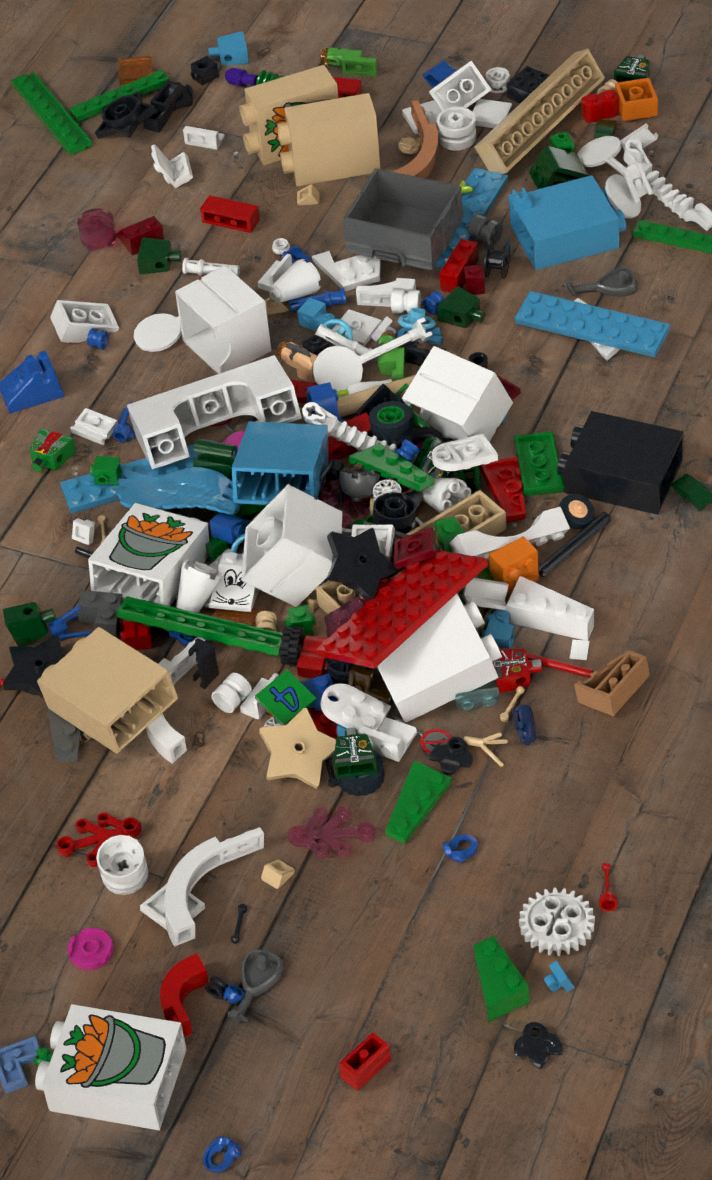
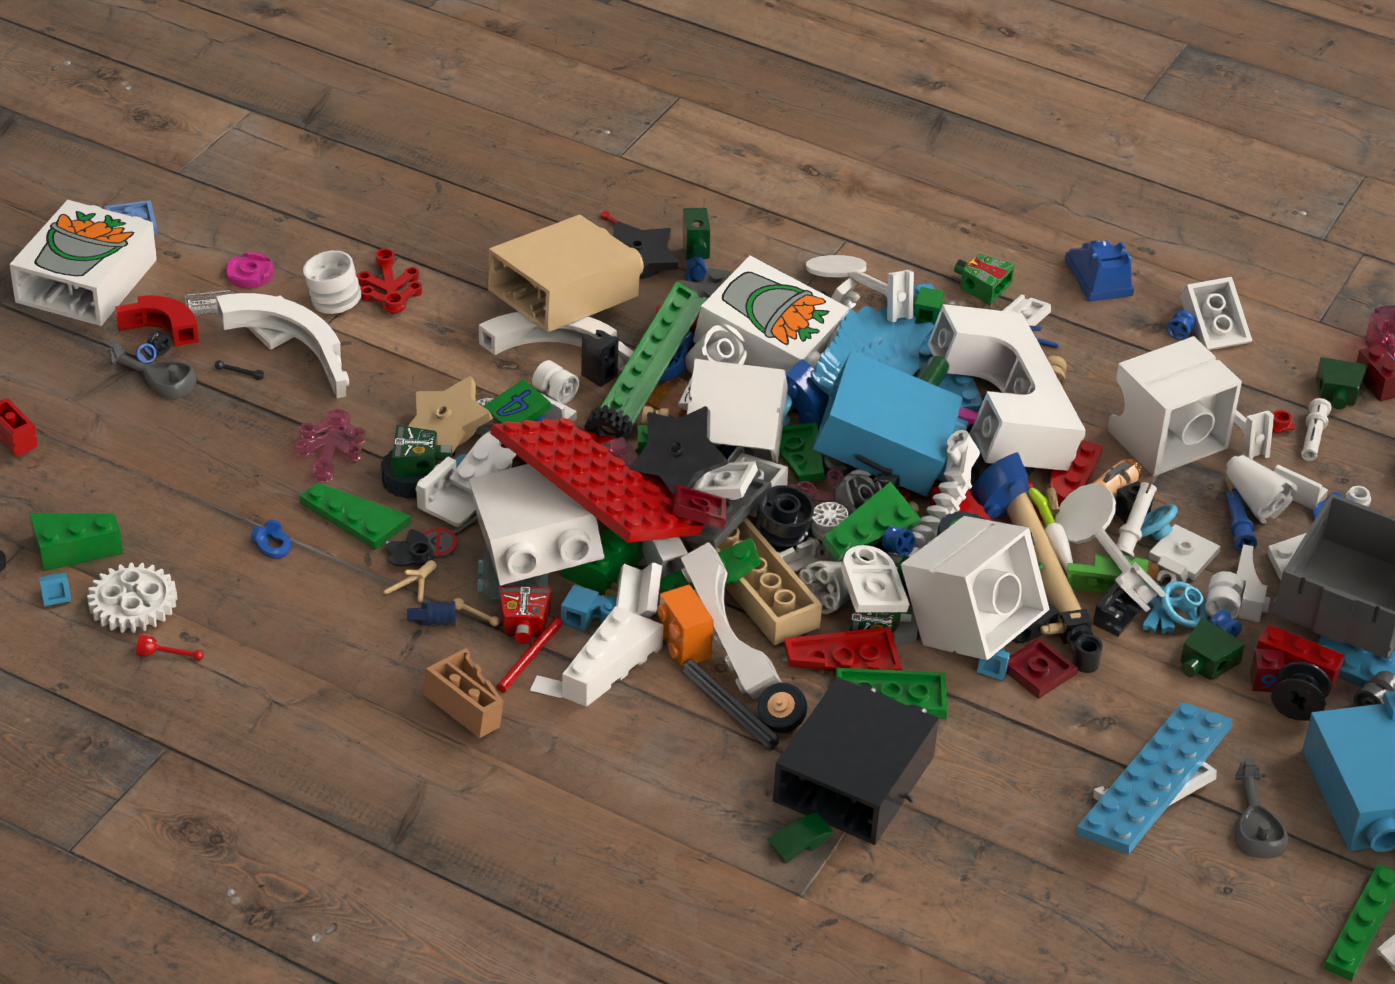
camera: 90 degrees right, 5 degrees down
(52, 534) = (898, 290): none -> white piece
(145, 968) = (204, 302): none -> clear tile
(277, 873) = (295, 401): tan slope -> none
(313, 314) = (1205, 509): dark azure brick -> none

